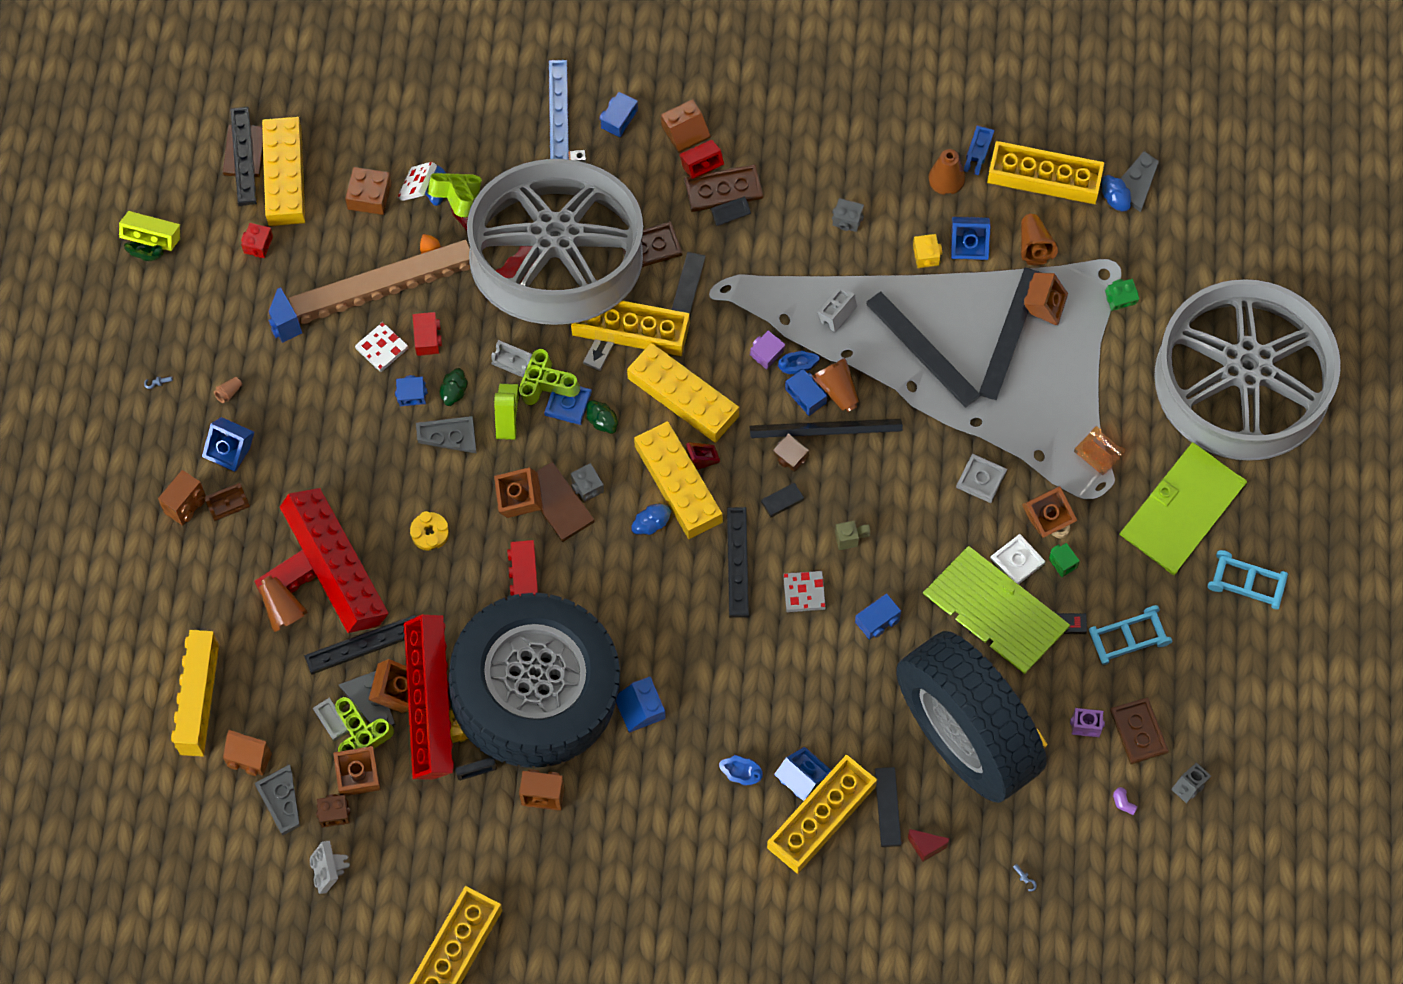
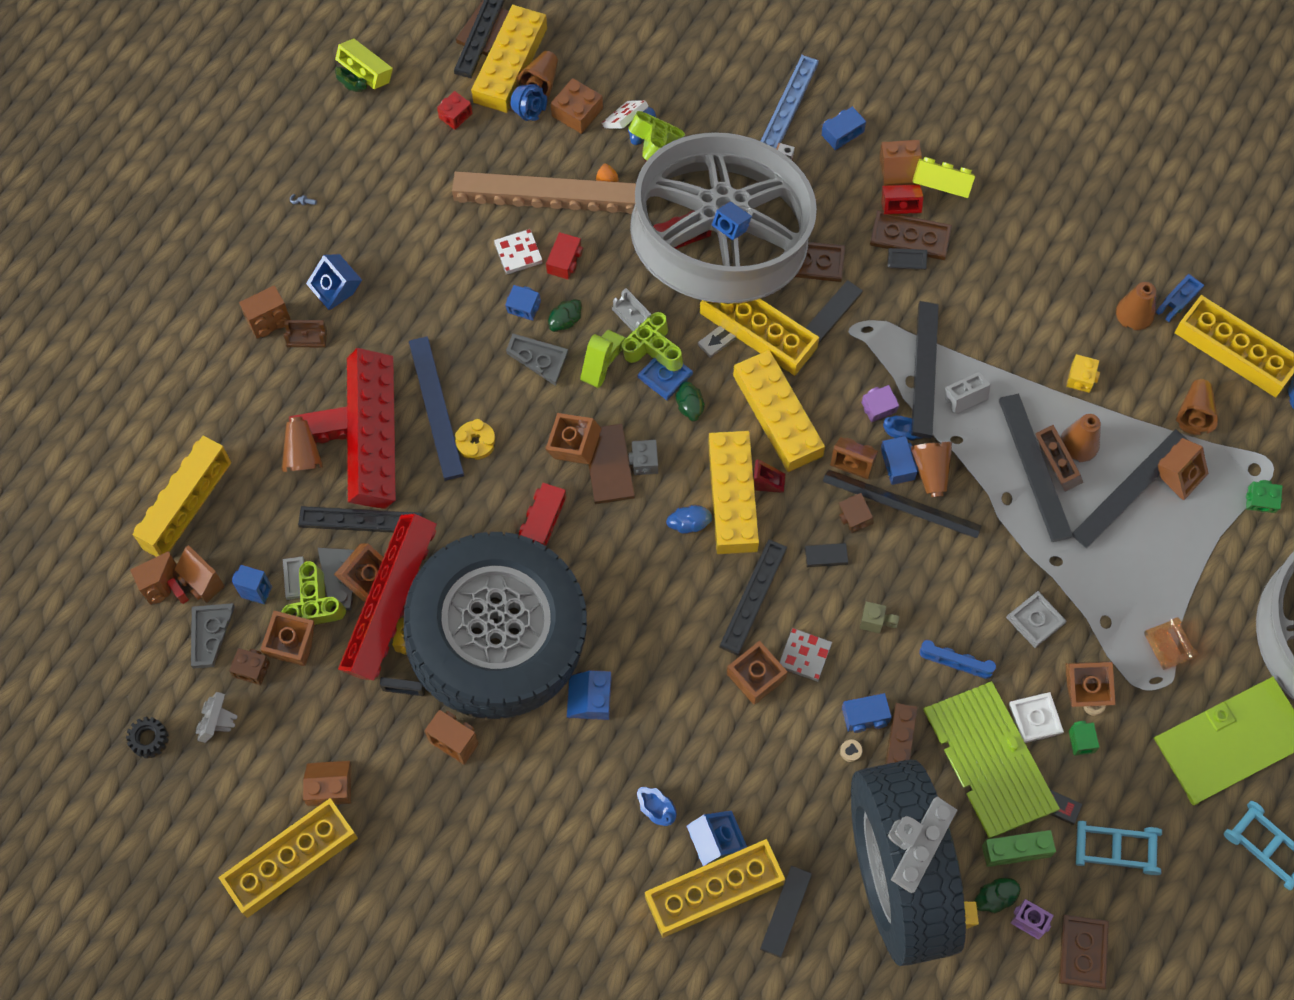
camera: 25 degrees right, 0 degrees up
(210, 772) = (153, 577): none -> dark orange slope
(227, 390) = (357, 233): nougat cone -> none
(234, 775) = (177, 591): none -> red tile
(283, 318) = (439, 187): blue slope -> none
(283, 918) = (142, 726): none -> black tyre
(299, 740) = (252, 584): none -> blue brick
(320, 177) = (540, 72): none -> dark orange cone
(322, 205) = (528, 101): none -> blue cone
(379, 518) = (436, 408): none -> dark blue tile
(452, 876) = (327, 781): none -> dark orange slope
(572, 242) = (731, 220): none -> blue head
(729, 124) = (944, 177): none -> neon yellow brick
(767, 406) = (853, 457): none -> dark orange slope
(772, 623) = (756, 672): none -> dark orange brick
(792, 303) = (925, 370): none -> black tile
(847, 215) = (1020, 308): dark grey head -> none
(879, 653) = (851, 750): none -> tan tile
(914, 620) = (901, 733): none -> reddish brown brick
(927, 844) = (806, 969): dark red slope -> none
(939, 540) = (961, 662): none -> blue plate
(940, 333) = (1059, 458): none -> reddish brown brick
(951, 308) = (1083, 438): none -> dark orange cone
(970, 238) = (1132, 379): blue slope -> none
(980, 688) = (920, 841): none -> light grey plate
(1051, 671) = (1018, 848): none -> bright green brick
(1052, 716) = (997, 895): none -> dark green arm

